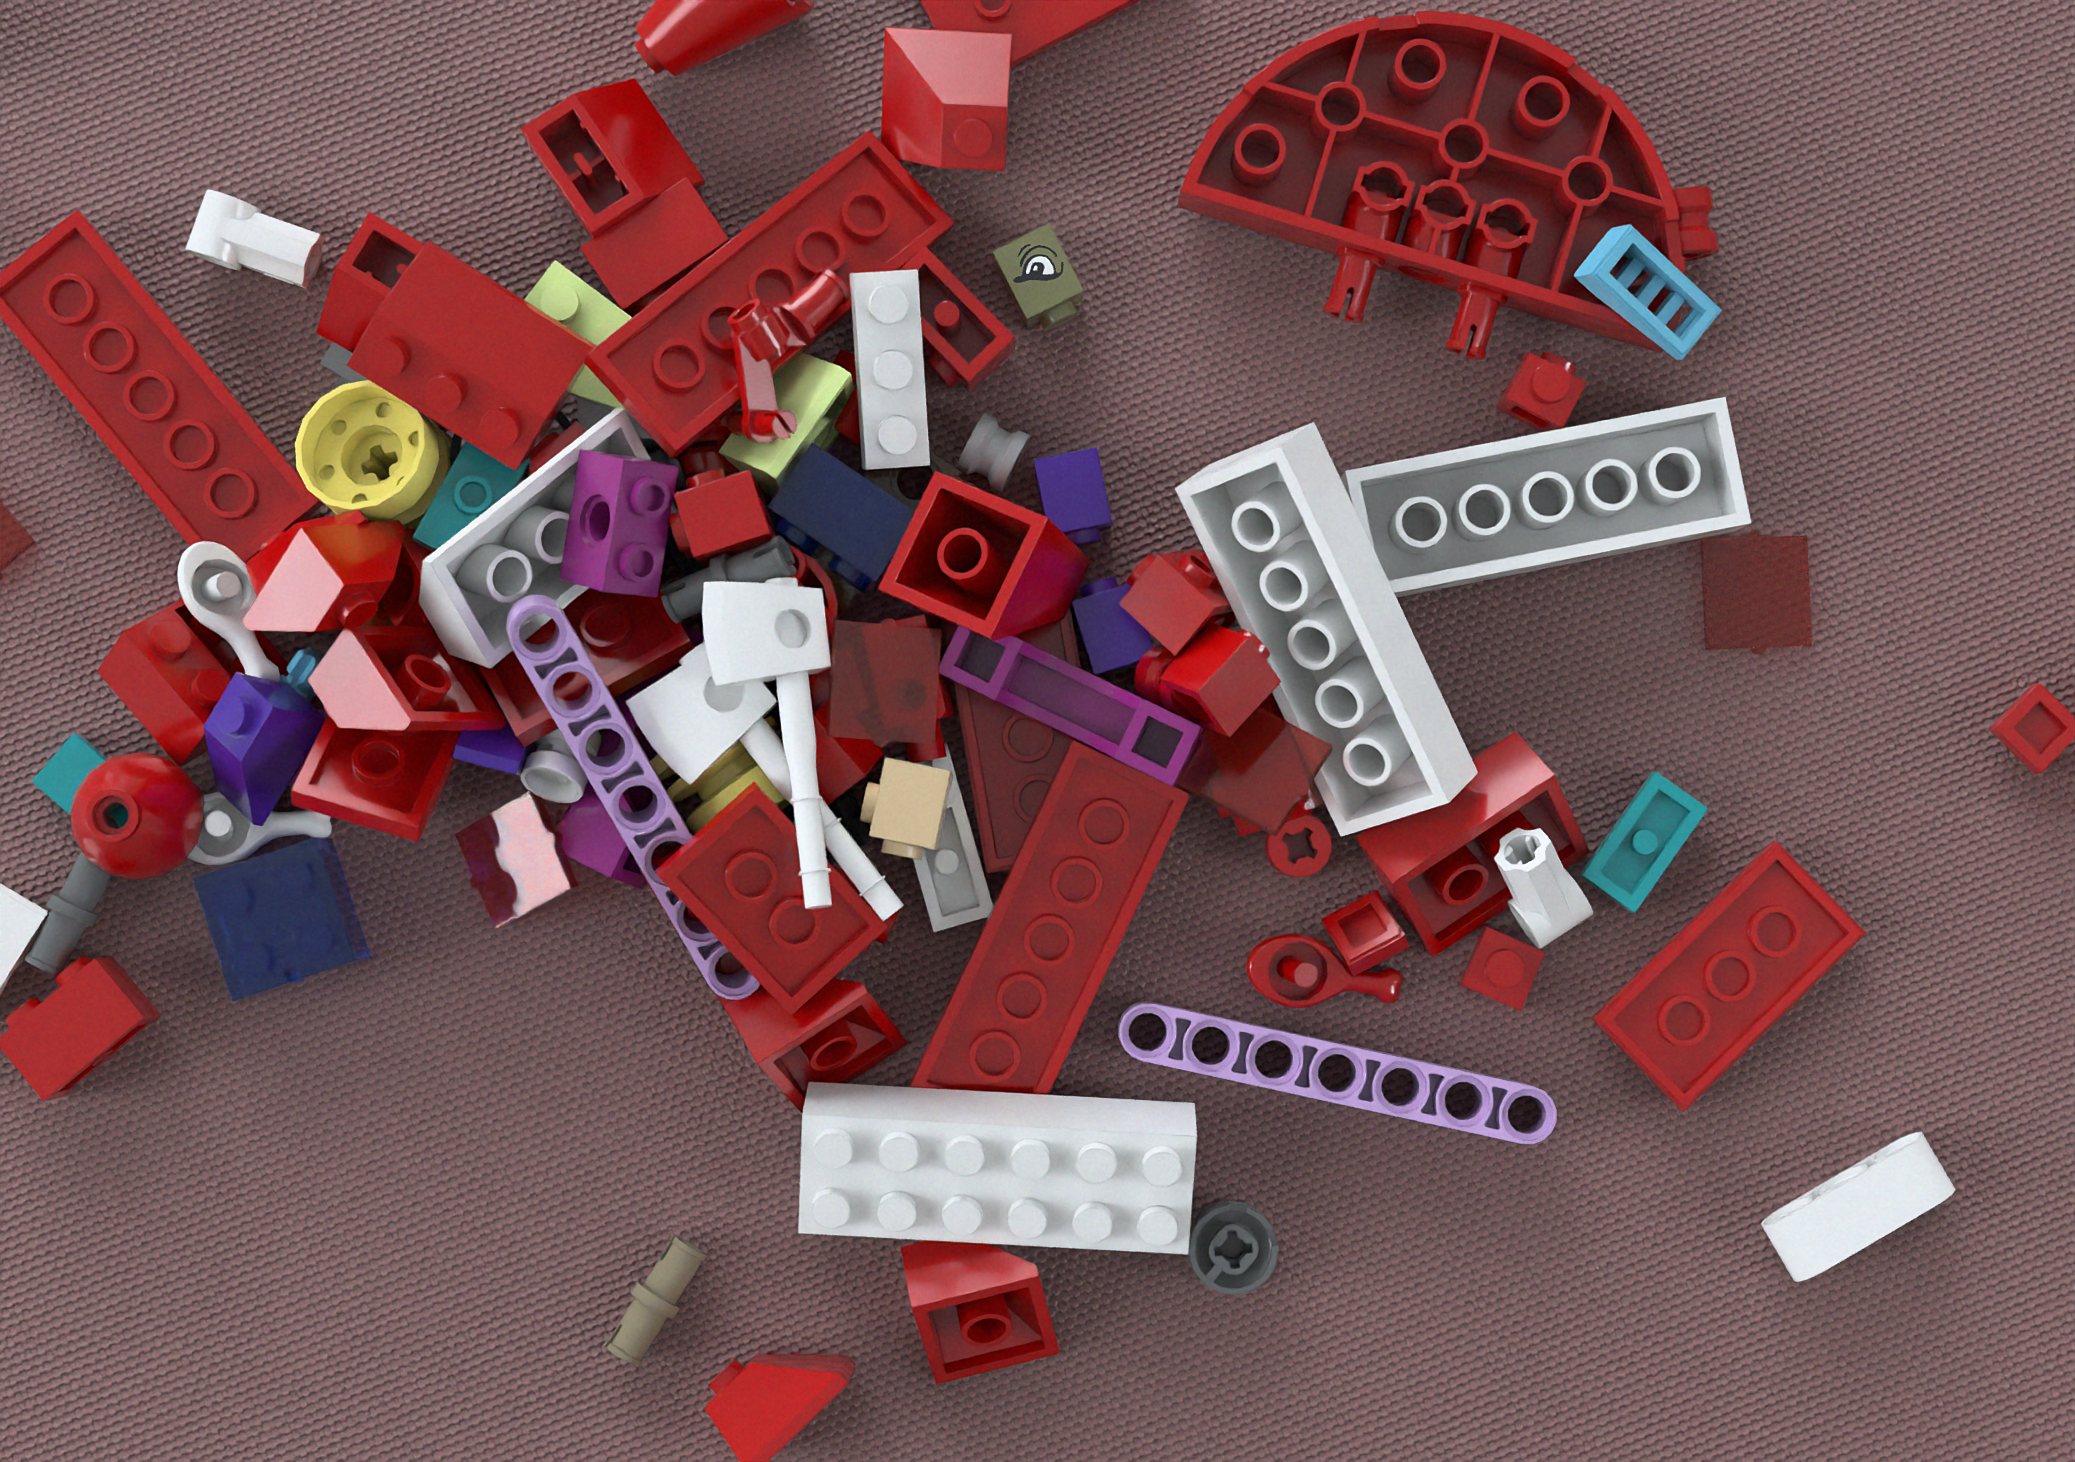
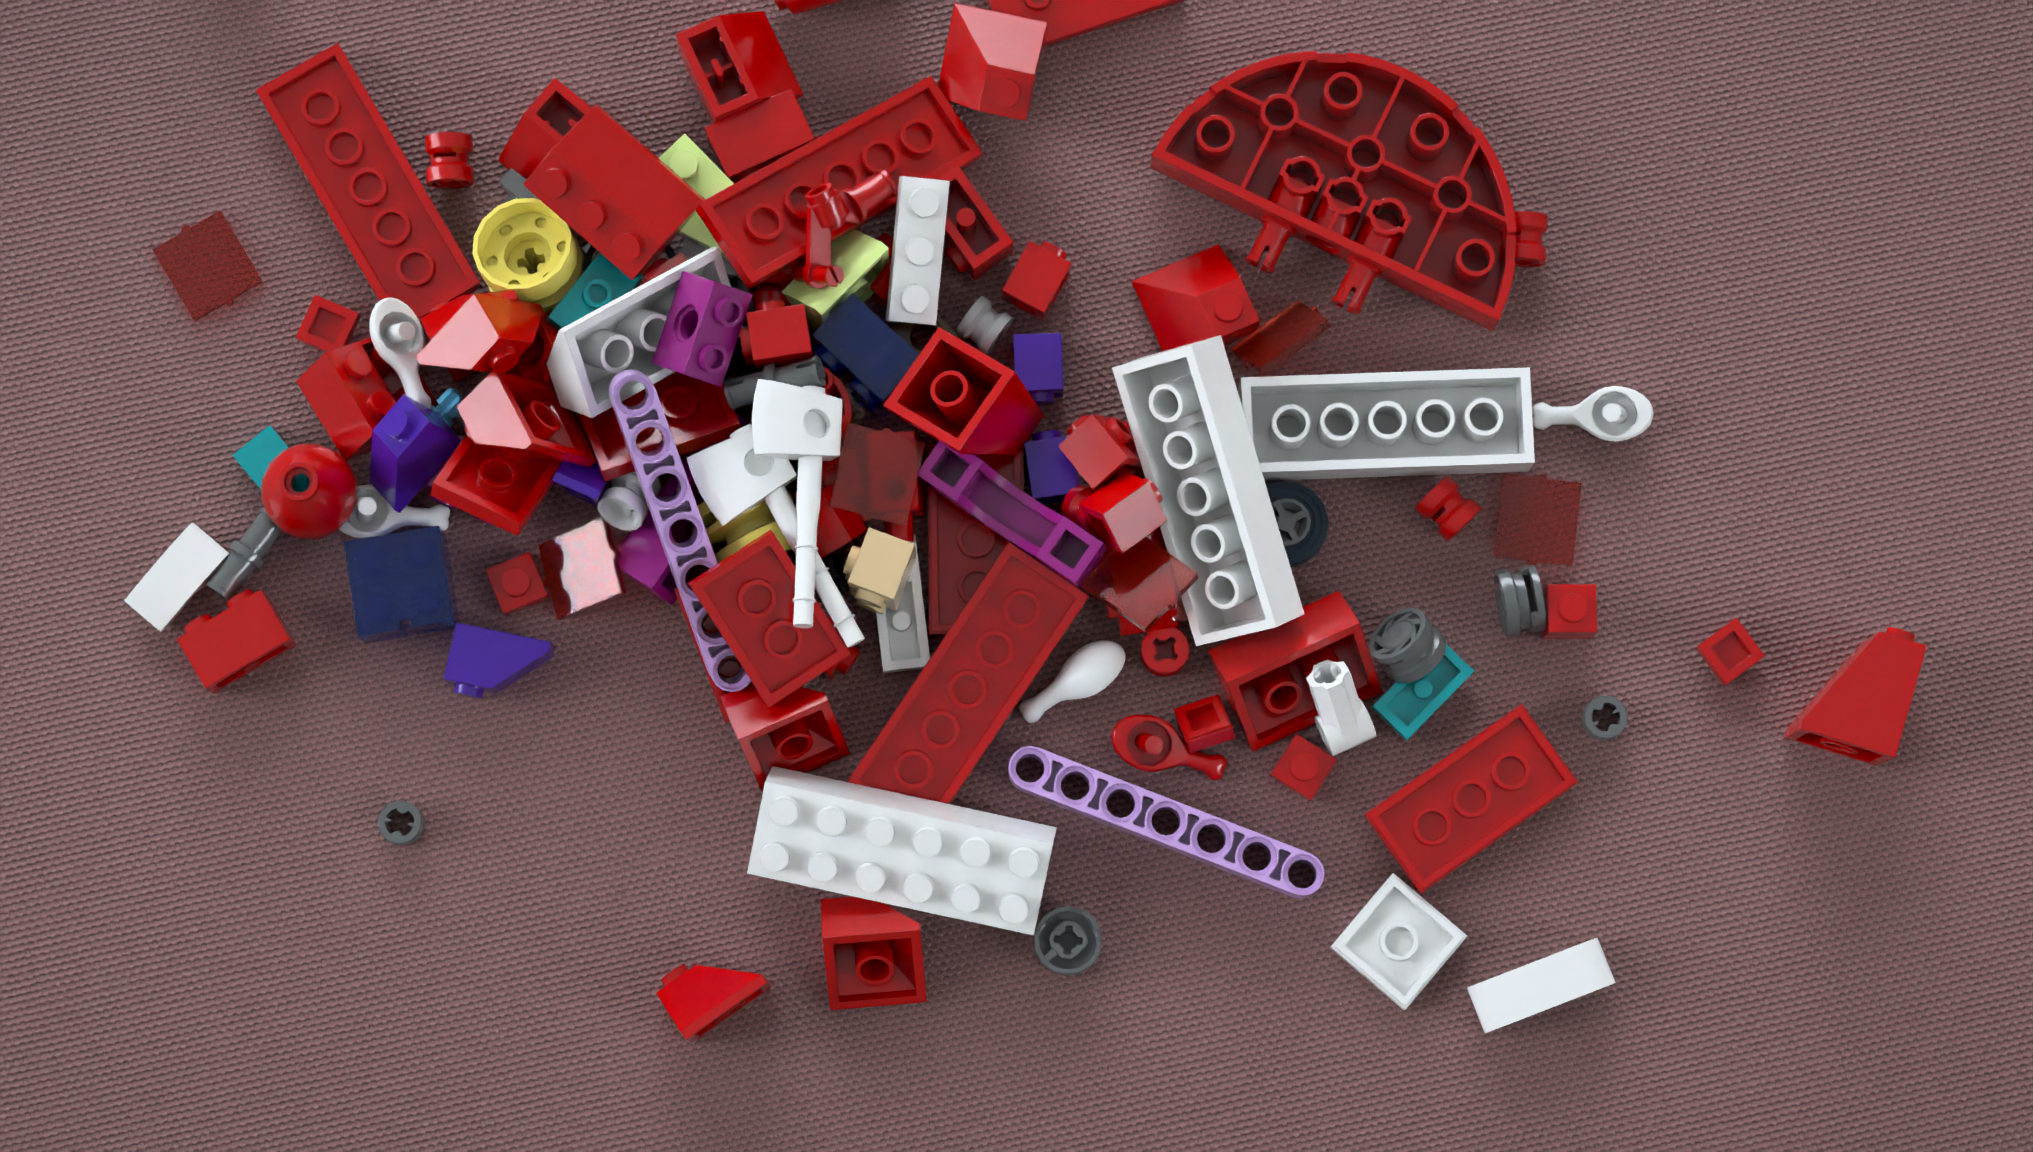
camera: 10 degrees right, 5 degrees down
(128, 589) = (327, 325): none -> red plate
(239, 236) = (452, 79): white piece -> none
(251, 343) = (449, 160): none -> red wheel
(337, 1249) = (404, 808): none -> dark grey bush
(415, 998) = (491, 659): none -> dark purple slope
(435, 890) = (517, 583): none -> red plate
(655, 1300) = (631, 912): dark tan pin -> none
(1039, 279) = (1038, 204): olive brick -> none
(1053, 378) = (1037, 279): none -> red brick
(1196, 896) = (1080, 677): none -> white piece
(1267, 376) = (1196, 301): none -> red slope
(1387, 407) = (1281, 338): none -> clear red piece
(1449, 640) = (1300, 505): none -> black wheel
(1542, 392) = (1398, 344): red brick -> none
(1613, 290) = (1458, 278): medium azure slope -> none
(1617, 791) = (1407, 645): none -> dark grey wheel
(1640, 598) = (1447, 508): none -> red wheel
(1661, 1176) = (1398, 941): none -> white tile
(1755, 706) = (1520, 601): none -> dark grey wheel
(1820, 710) = (1570, 611): none -> red brick
(1828, 439) = (1608, 414): none -> white piece
(1895, 857) = (1613, 729): none -> dark grey bush

